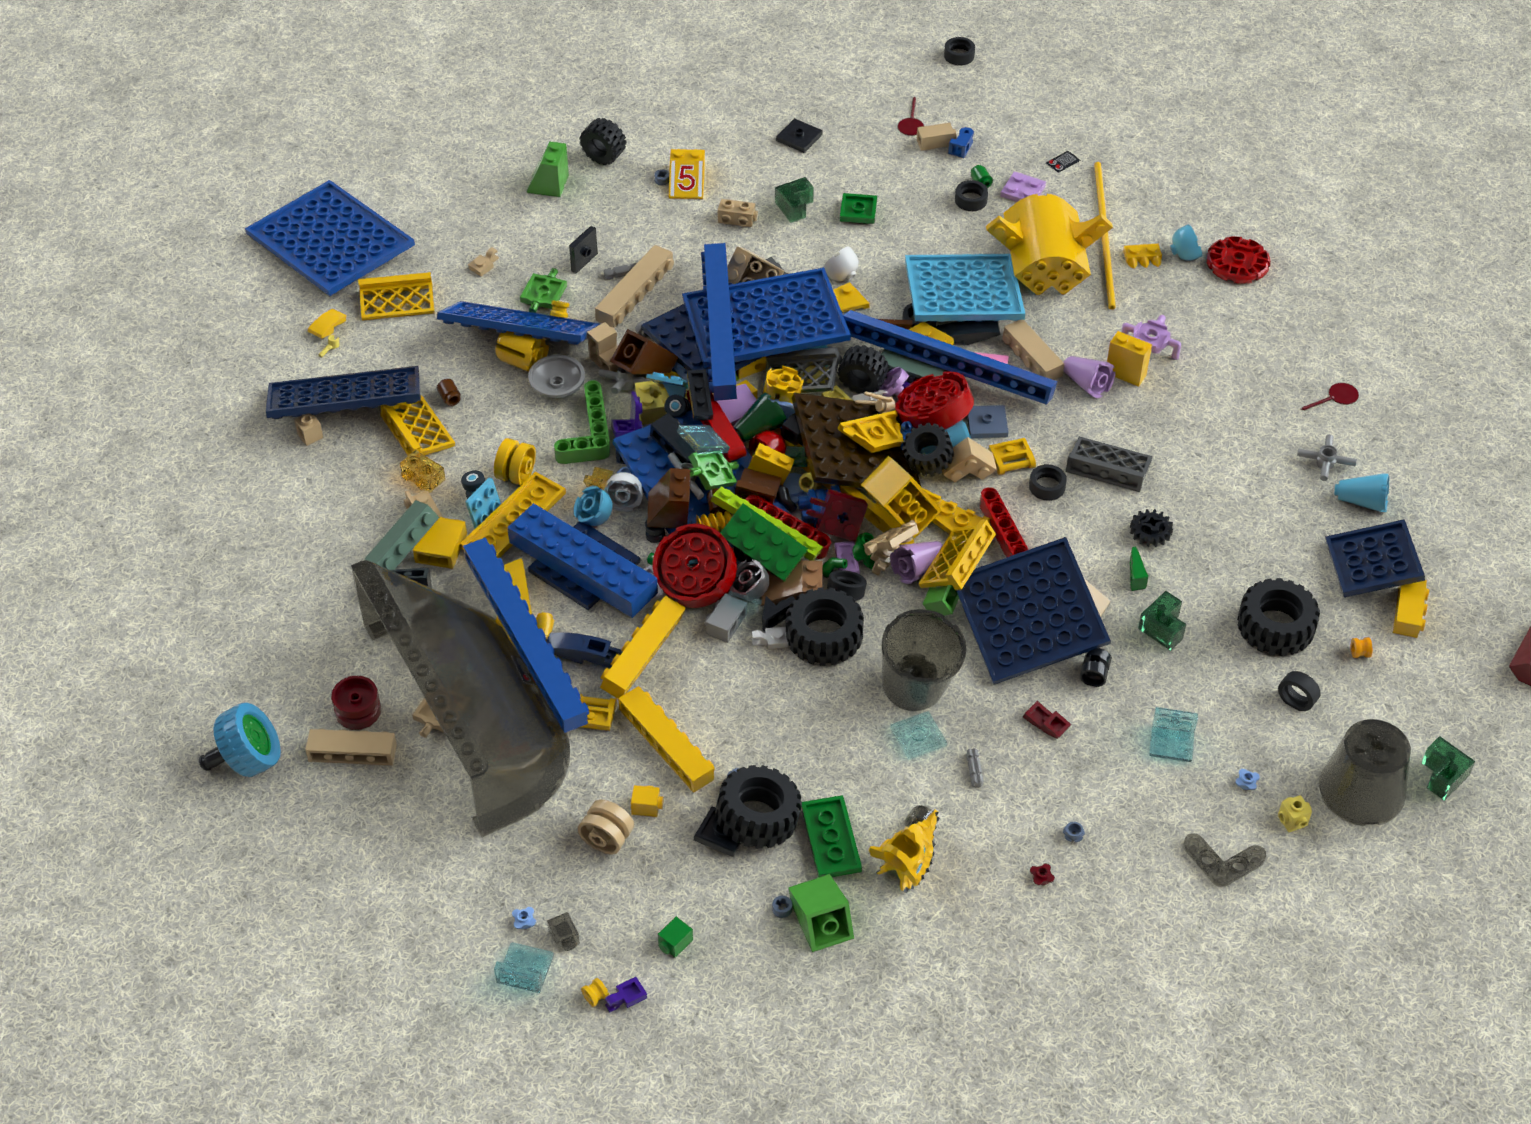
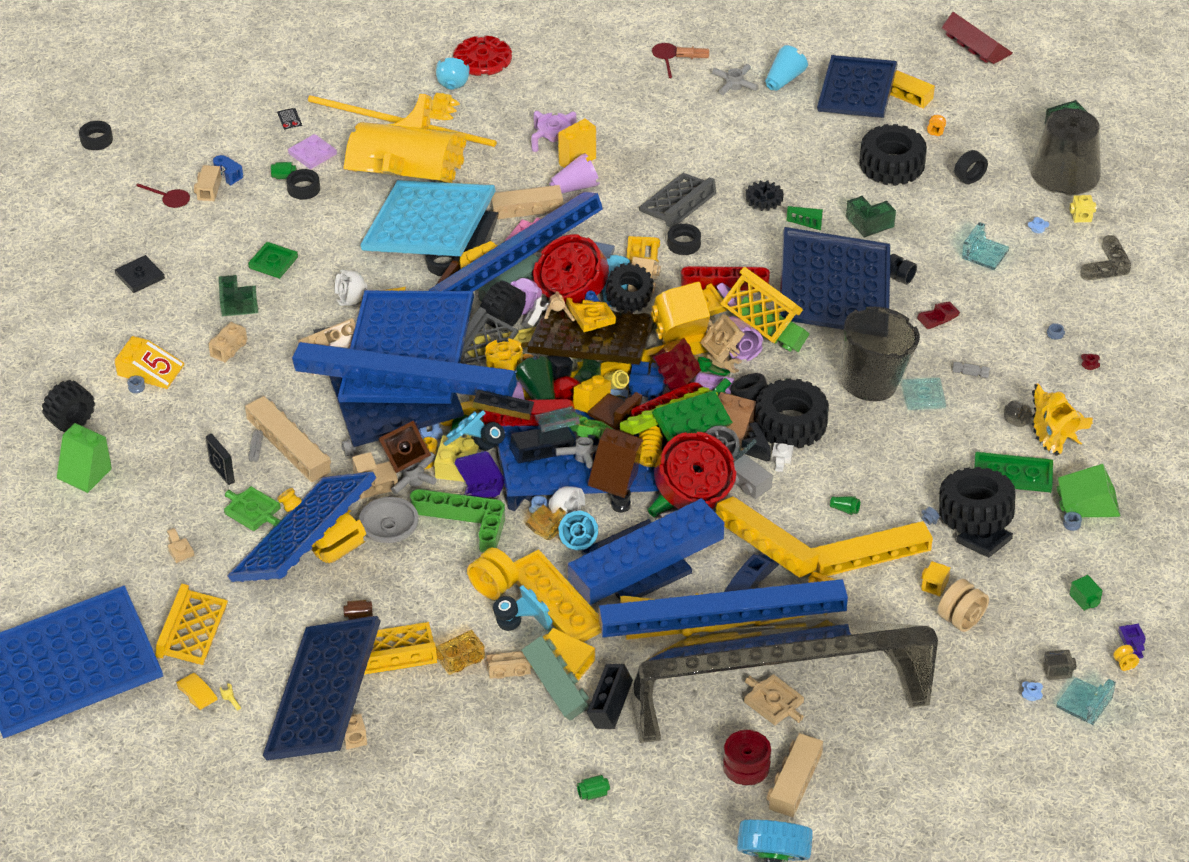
camera: 70 degrees left, 5 degrees down
(294, 604) = (593, 787): none -> green brick
(722, 705) = (846, 504): none -> green cone
(1351, 413) = (692, 52): none -> nougat axle

